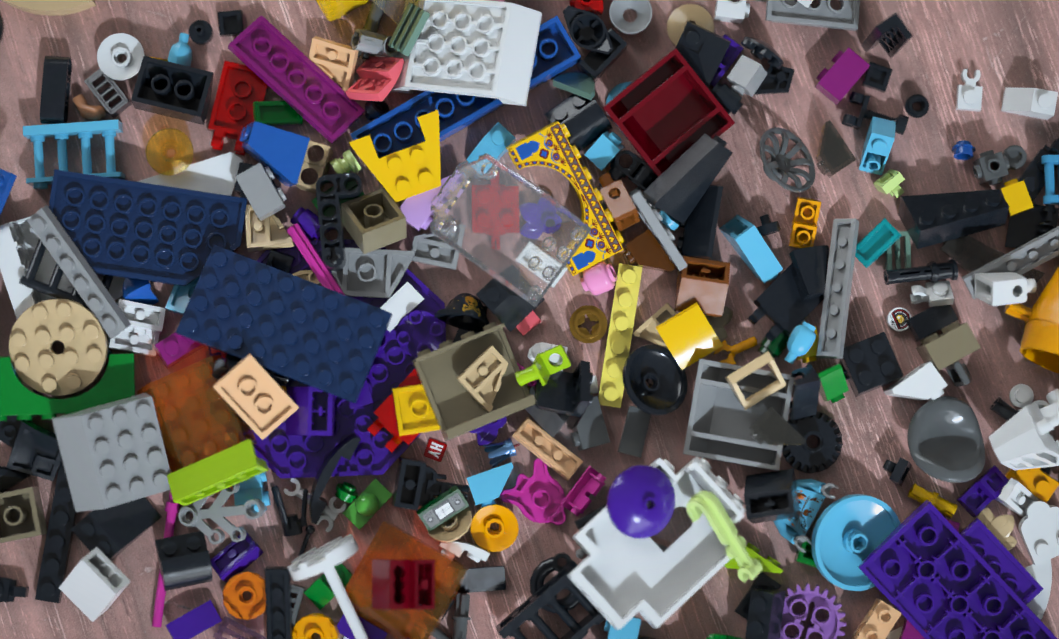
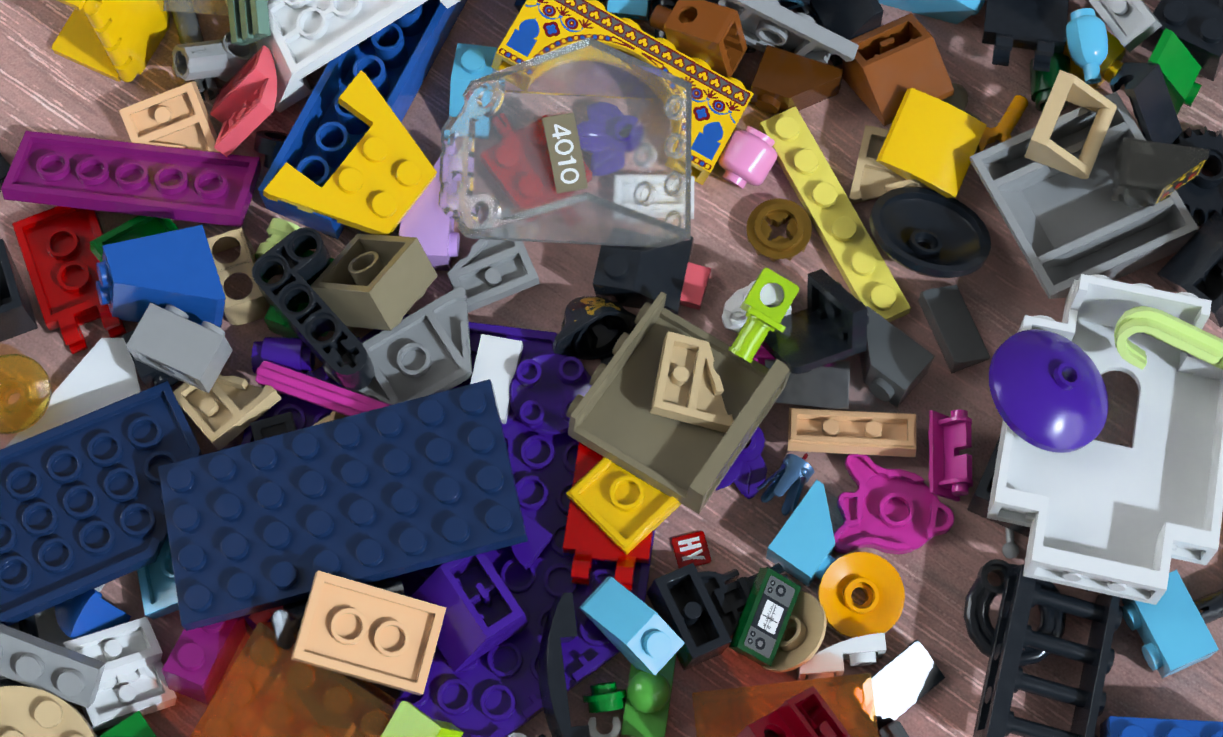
camera: 25 degrees left, 15 degrees down
(377, 472) = (631, 626): none -> medium azure slope
(510, 217) = (565, 152): none -> dark tan sticker

